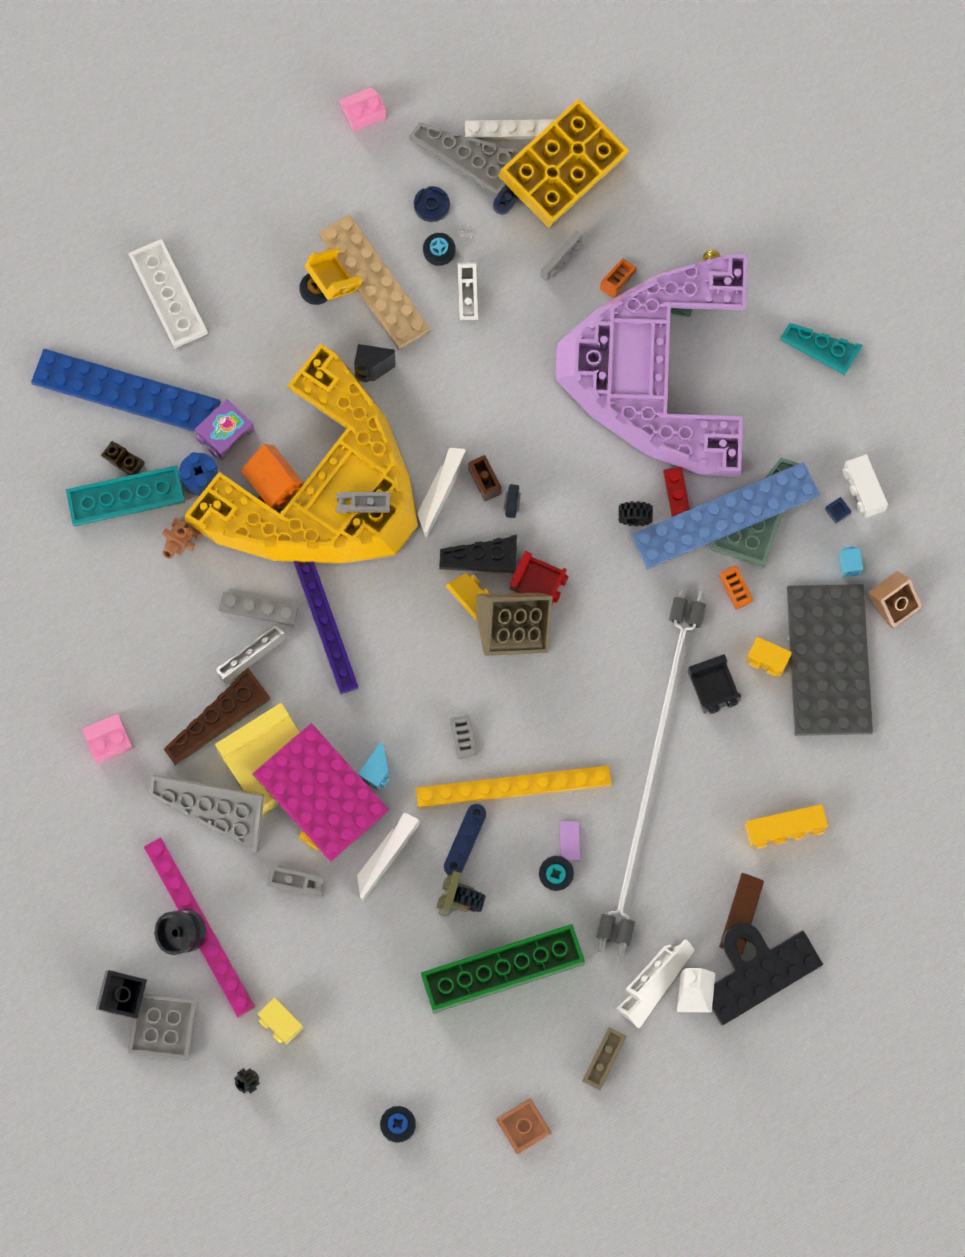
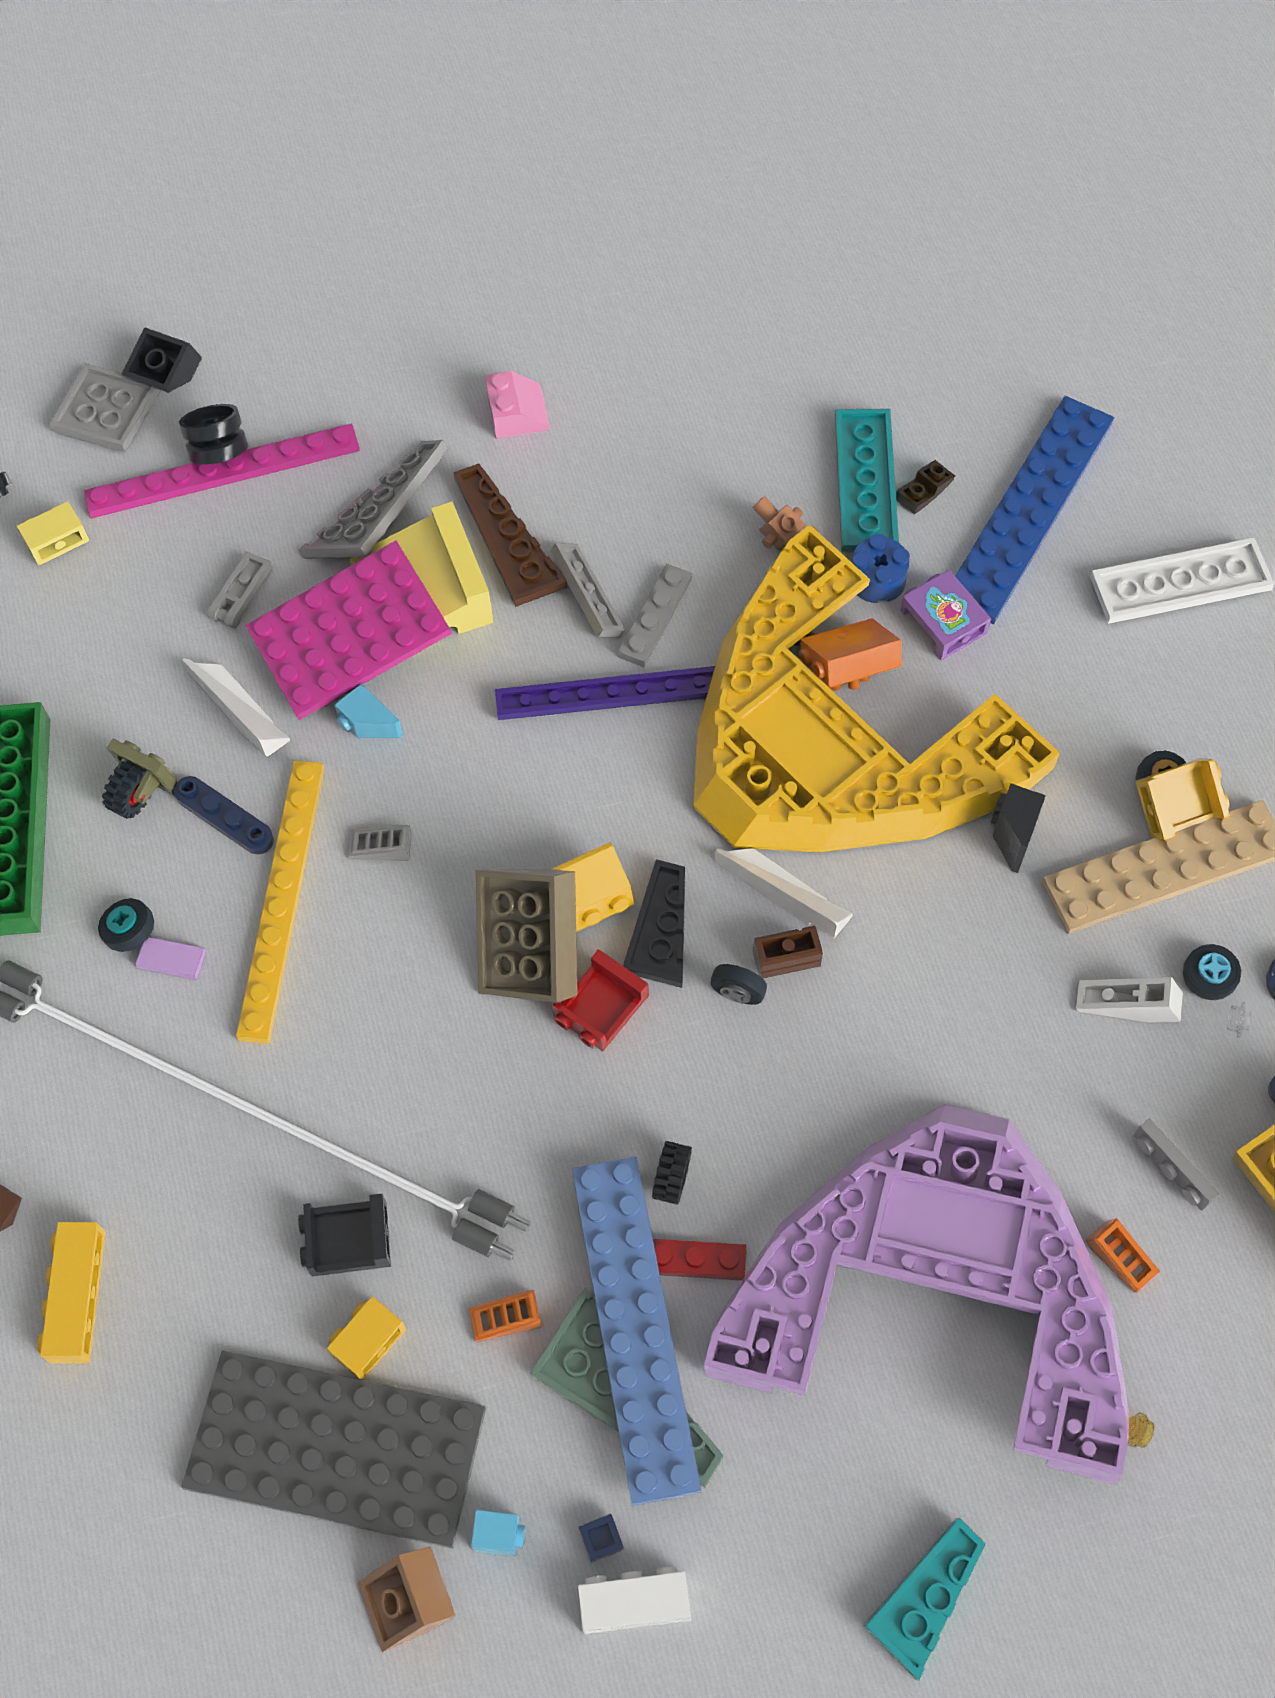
camera: 105 degrees right, 10 degrees down
(363, 502) = (775, 757): light grey plate -> none

